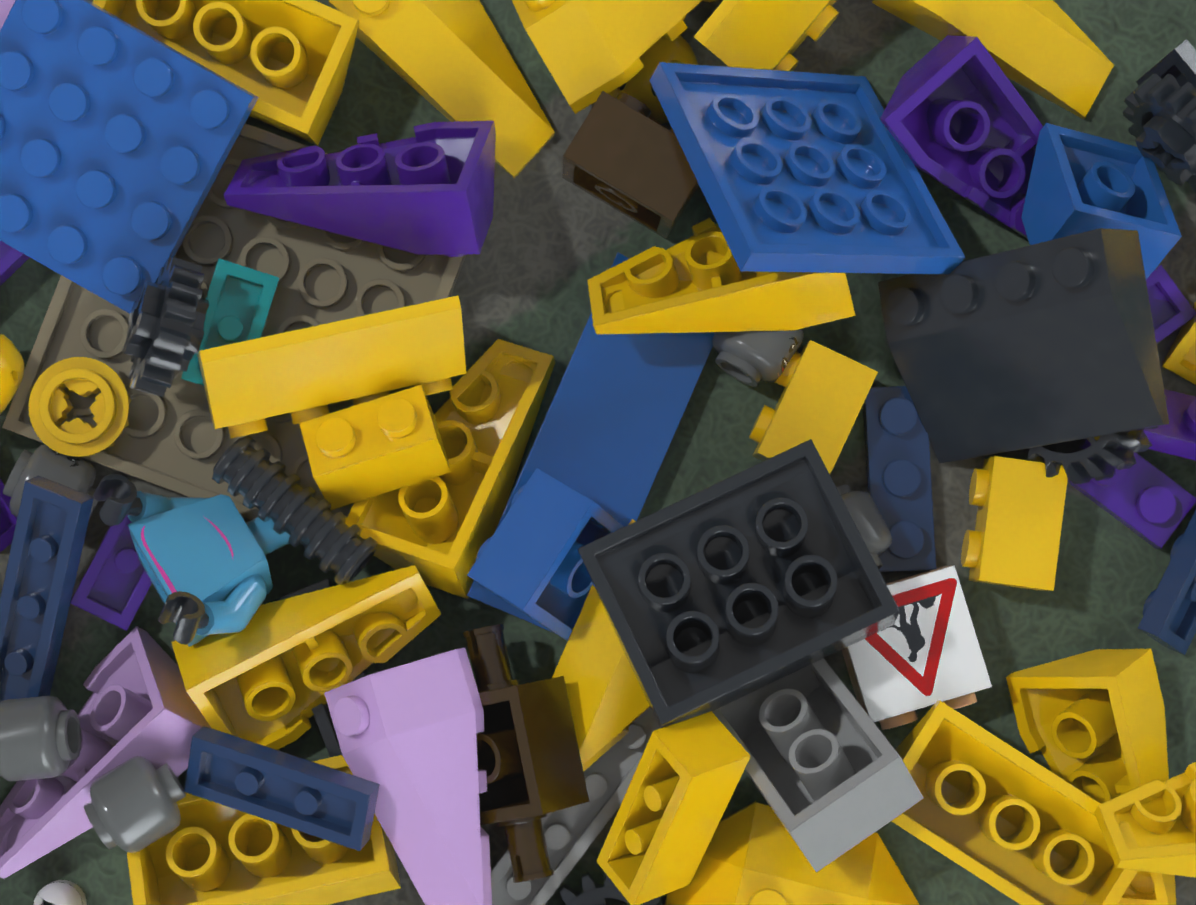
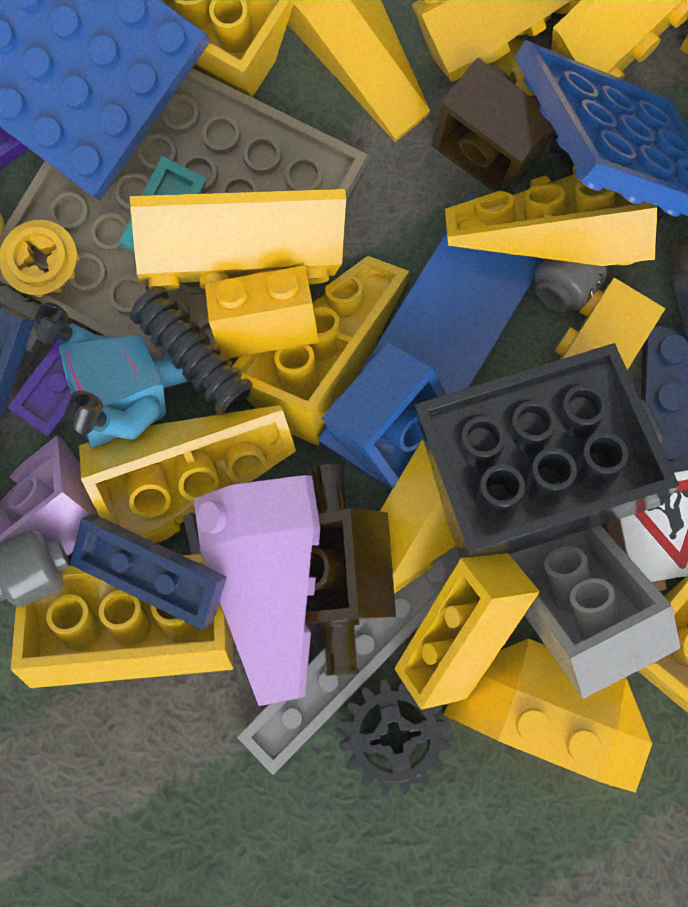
camera: 15 degrees right, 5 degrees down
(166, 326) = (108, 196): black gear -> none
(403, 194) = (320, 132): dark purple wedge -> none

